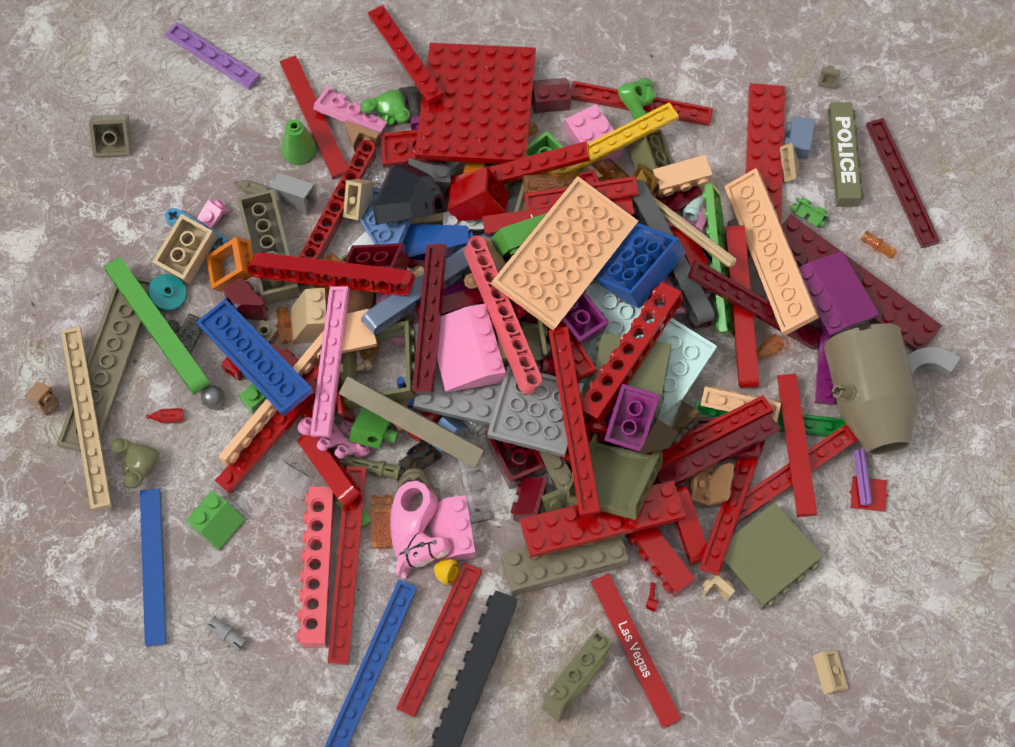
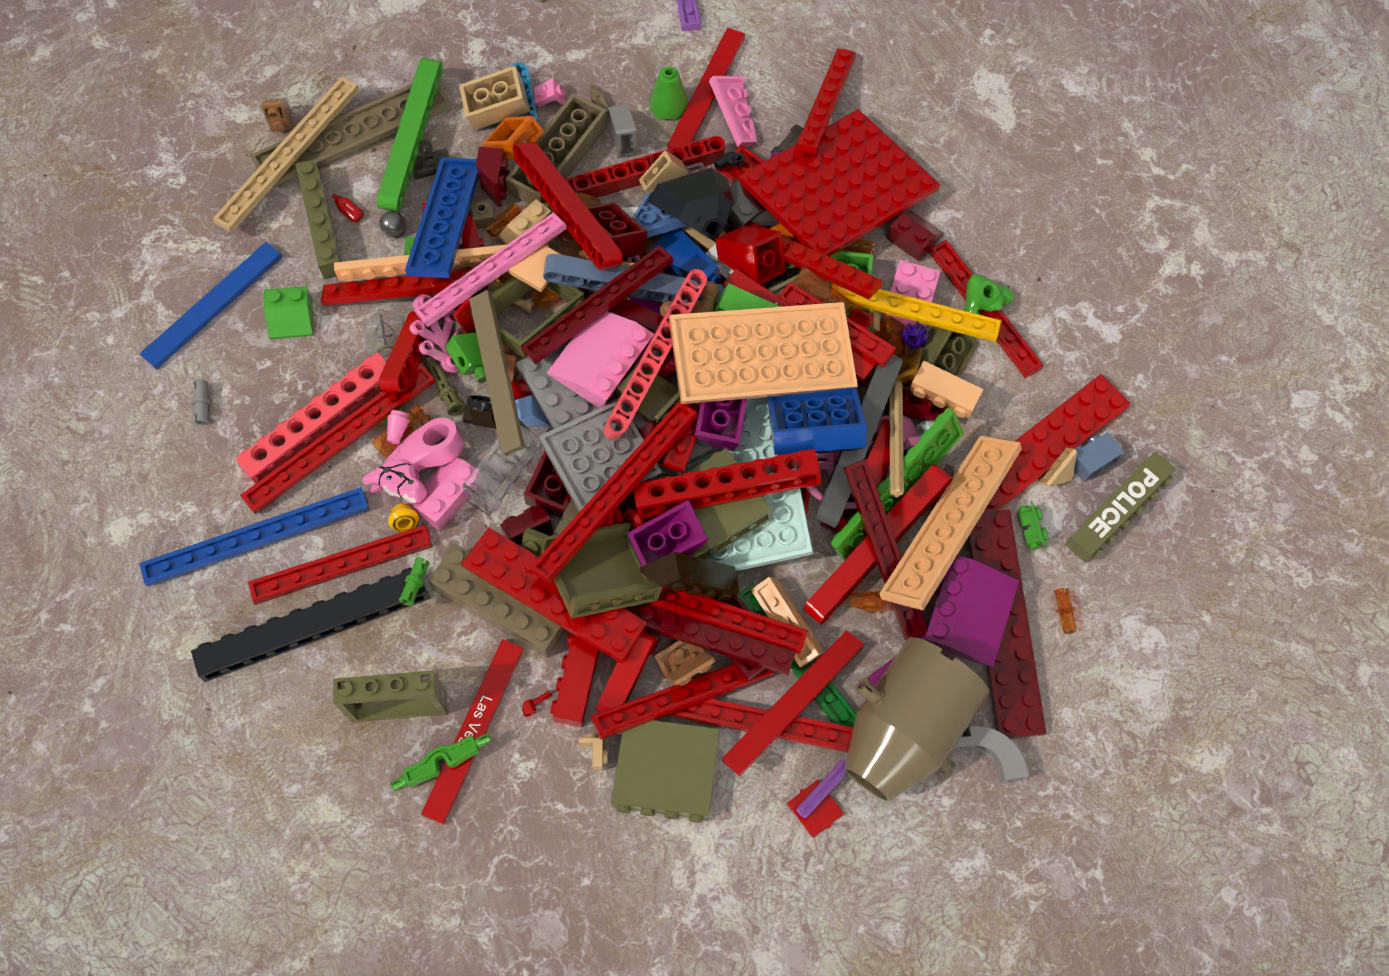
camera: 45 degrees right, 0 degrees up
(137, 462) = (287, 219): olive head -> none
(162, 440) = (319, 217): none -> olive brick
(165, 301) = (448, 129): teal plate -> none
(359, 133) = (723, 129): medium nougat slope -> none
(378, 519) = (396, 426): none -> bright pink cone
(387, 149) = (729, 159): none -> black arm
(389, 105) = (771, 128): bright green head -> none
(414, 474) = (465, 420): dark tan helmet -> none
(506, 598) = (414, 581): none -> bright green pin
(626, 158) = (915, 335): none -> dark purple gear
(637, 696) = (429, 766): none -> bright green piece
(829, 76) = (1180, 431): dark tan tile -> none
(830, 672) = (609, 920): tan slope -> none
(902, 183) = (1149, 581): dark red tile -> none

